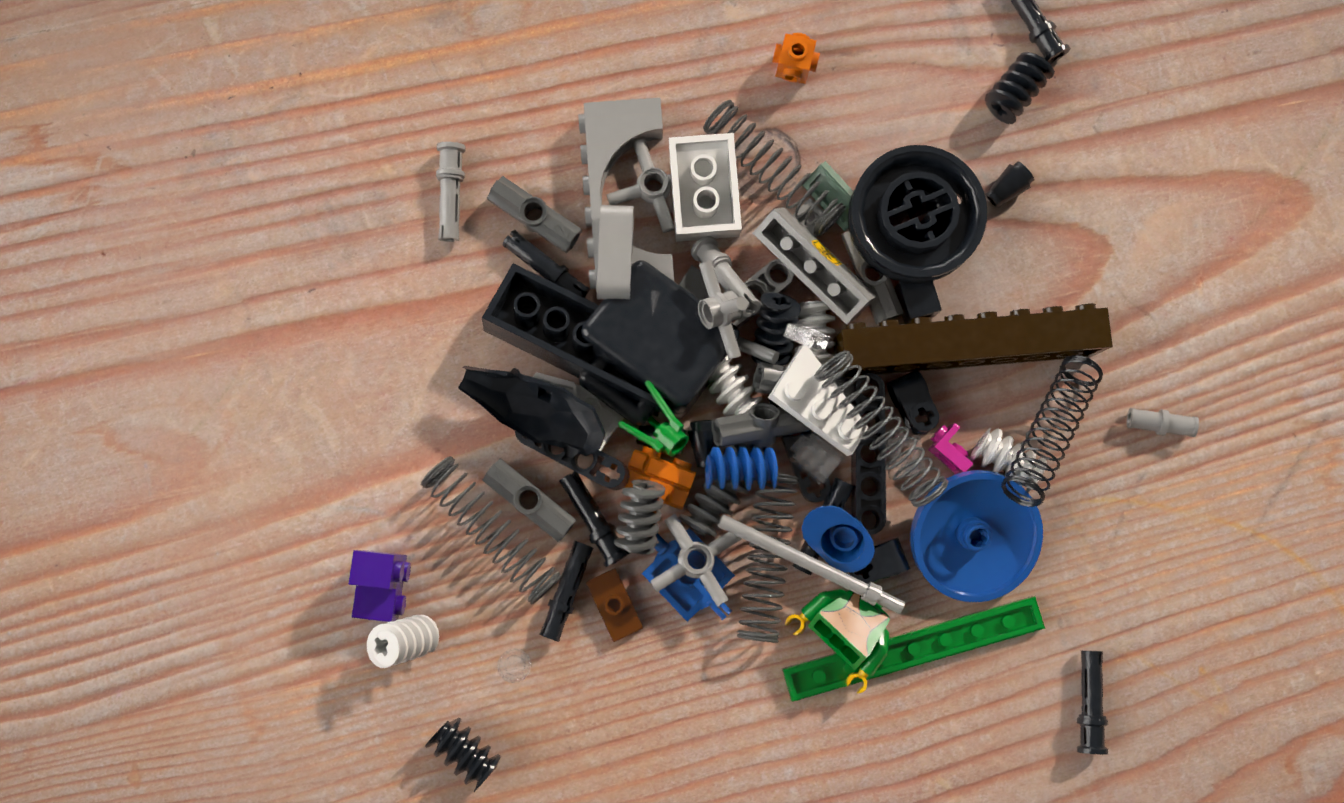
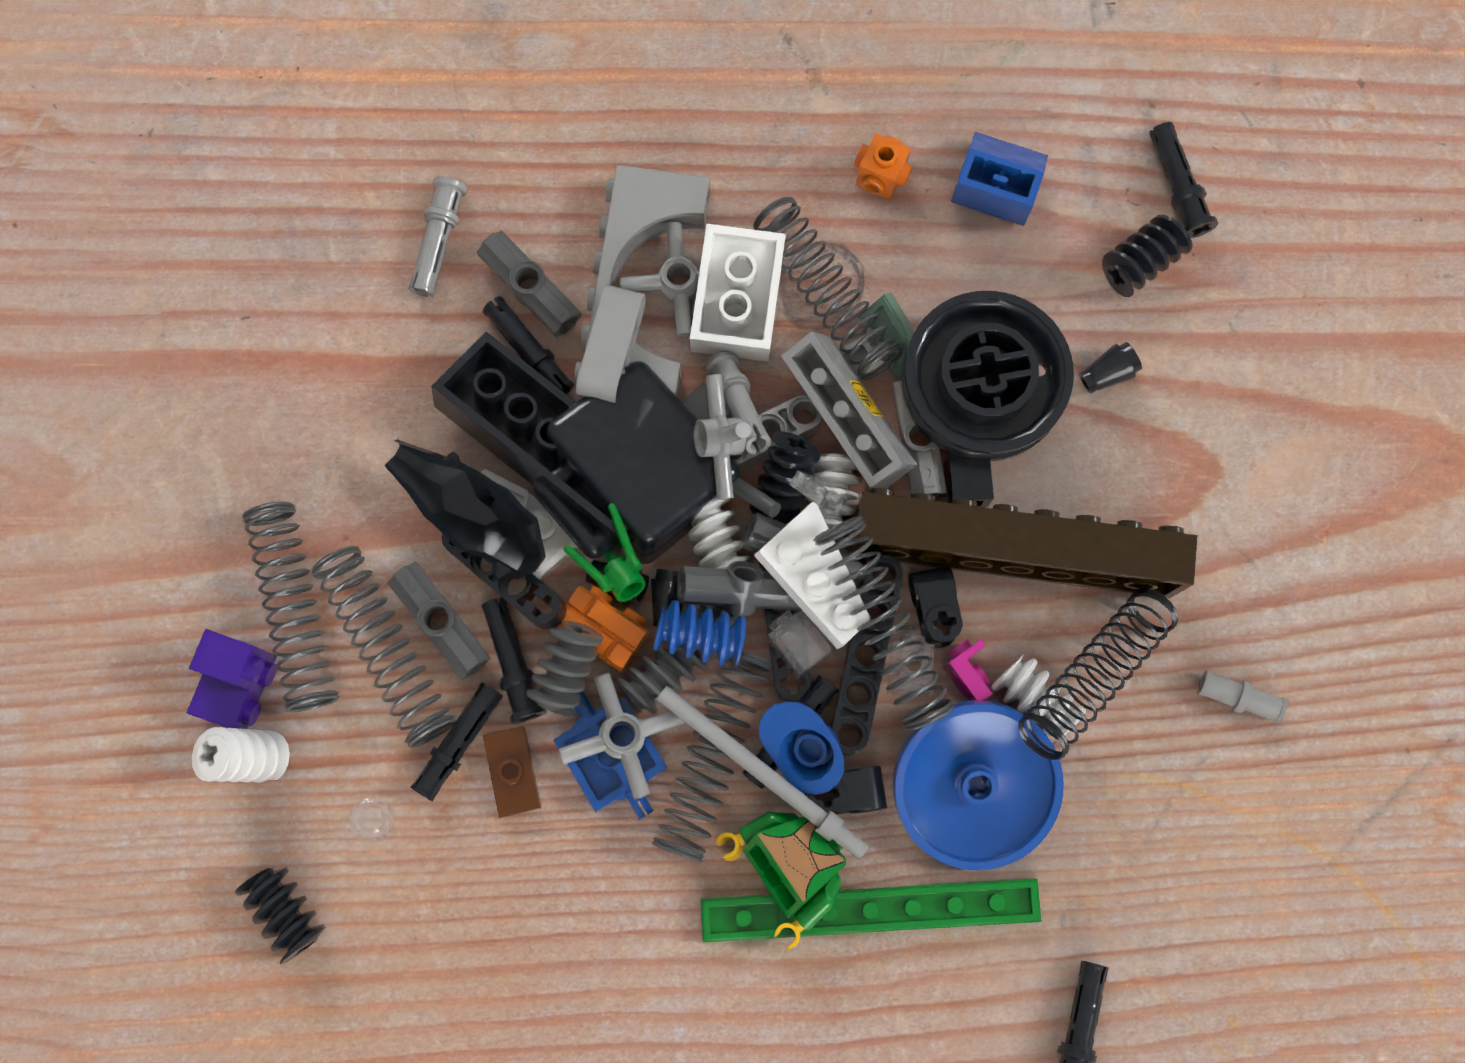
camera: 15 degrees right, 5 degrees down
(367, 449) = (286, 510): none -> dark grey piece
(891, 47) = (1000, 178): none -> blue slope

